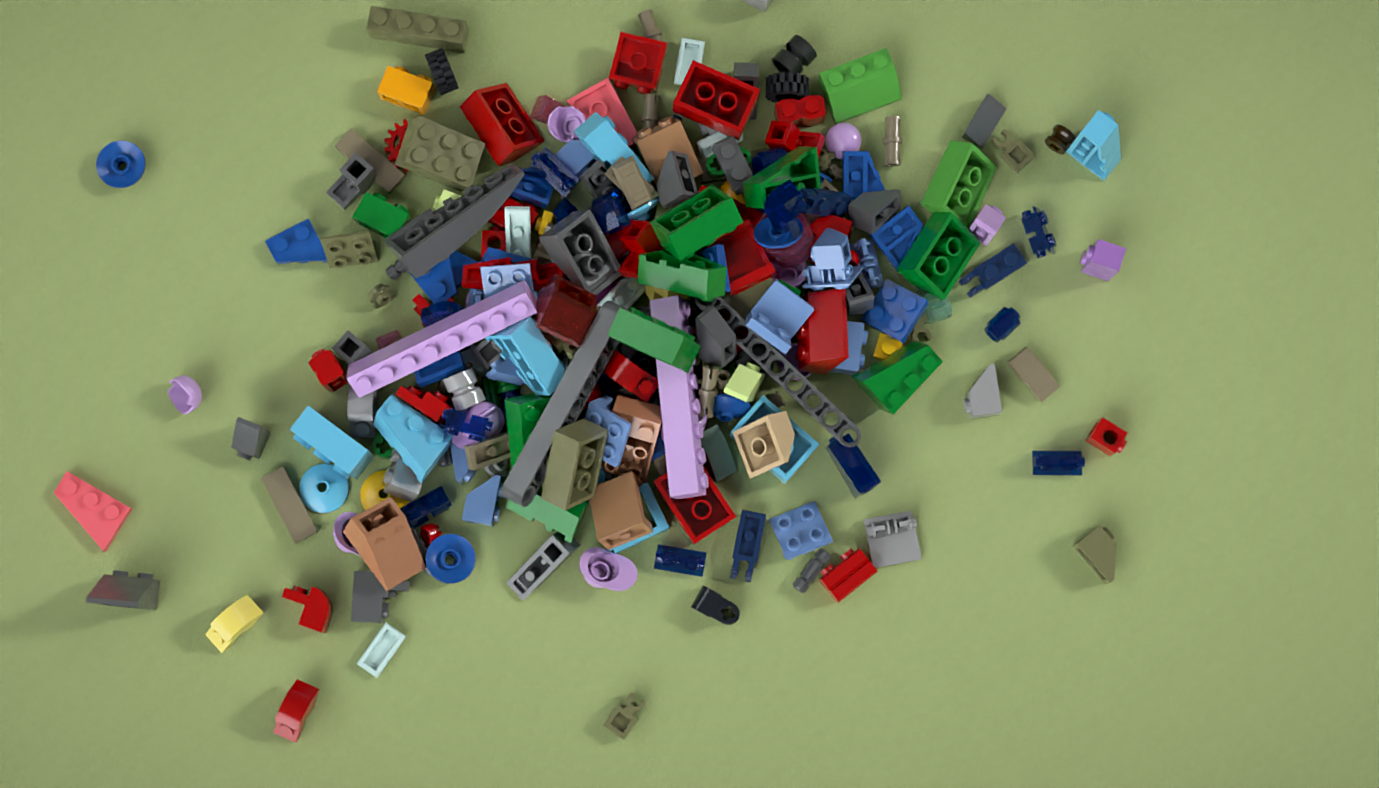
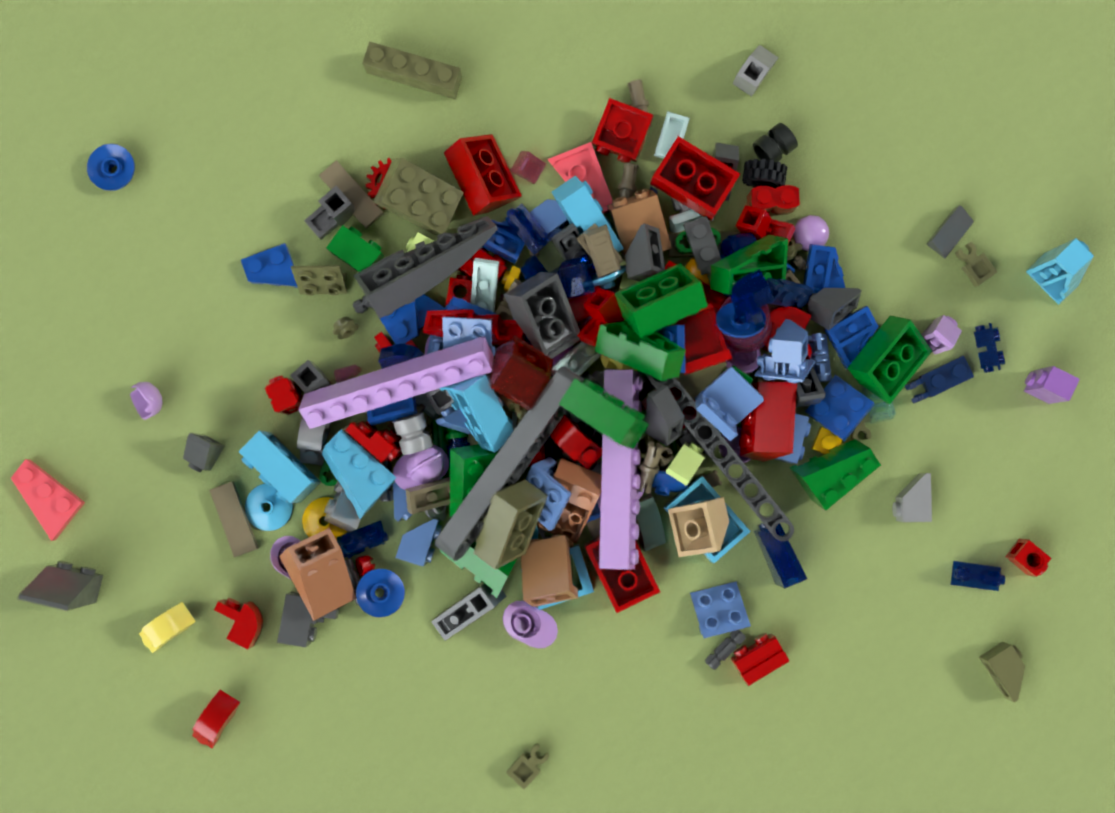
camera: 10 degrees right, 5 degrees up
(381, 650) = (304, 670): light aqua tile -> none
(406, 89) = (394, 128): light orange brick -> none
(441, 71) = (430, 115): black tyre -> none
(456, 423) = (400, 469): clear blue hinge -> none
(564, 121) = (543, 181): lavender hair -> none
(680, 560) = (600, 622): clear blue hinge -> none
(712, 603) = (625, 670): black piece -> none
(748, 542) = (667, 614): dark blue hinge -> none
(860, 86) = (835, 181): bright green slope -> none
(892, 141) = (859, 239): dark tan pin -> none
(892, 539) = (807, 628): light grey hinge -> none
(959, 182) = (919, 288): bright green slope -> none
(1002, 324) = (942, 434): clear blue brick -> none
(1034, 374) = (965, 486): dark tan slope -> none
(1059, 139) = (1023, 259): dark brown wheel -> none

